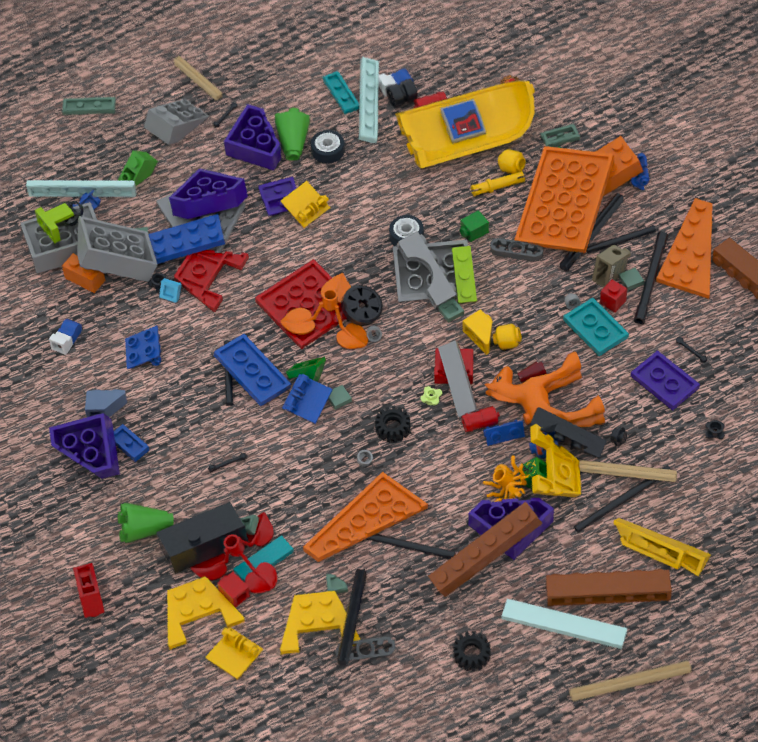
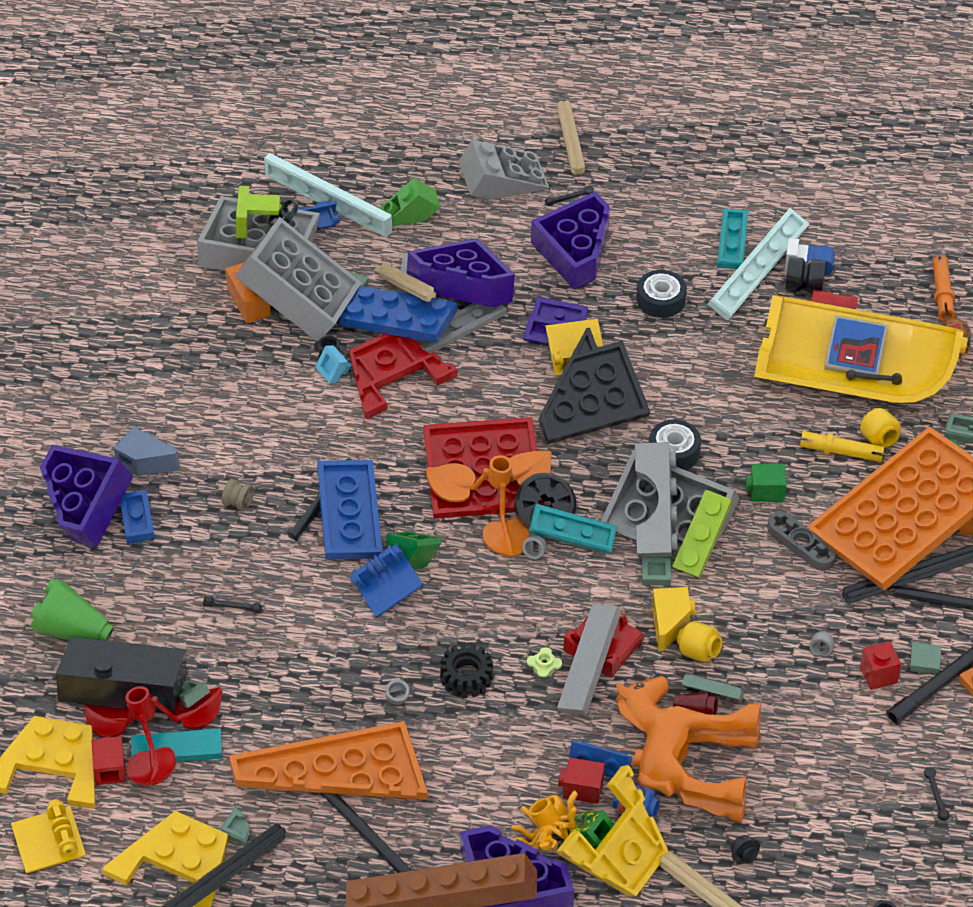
camera: 30 degrees right, 5 degrees down
(65, 336) = (169, 353): leg -> none
(96, 105) = (418, 107): sand green tile -> none
(143, 348) = (247, 415): blue hinge -> none
(177, 217) = (406, 282): none -> tan axle
(179, 397) = (237, 494): none -> dark tan wheel
(292, 132) = (628, 253): bright green cone -> none
(337, 225) = (593, 392): none -> black wing
(339, 397) = (429, 601): sand green tile -> none
(388, 311) = (572, 529): none -> teal tile
(480, 419) = (580, 725): red piece -> none
(486, 65) = (944, 295): none -> orange pin
(497, 128) = (895, 378): none -> black hinge
(504, 447) = (584, 778): none -> red brick
(534, 357) = (713, 687): none -> sand green tile
(568, 433) = (674, 803): black bracket -> none
(595, 326) = (827, 693): teal plate -> none
(610, 264) = (907, 622): dark tan torso -> none
(665, 380) = (866, 812): dark purple plate -> none

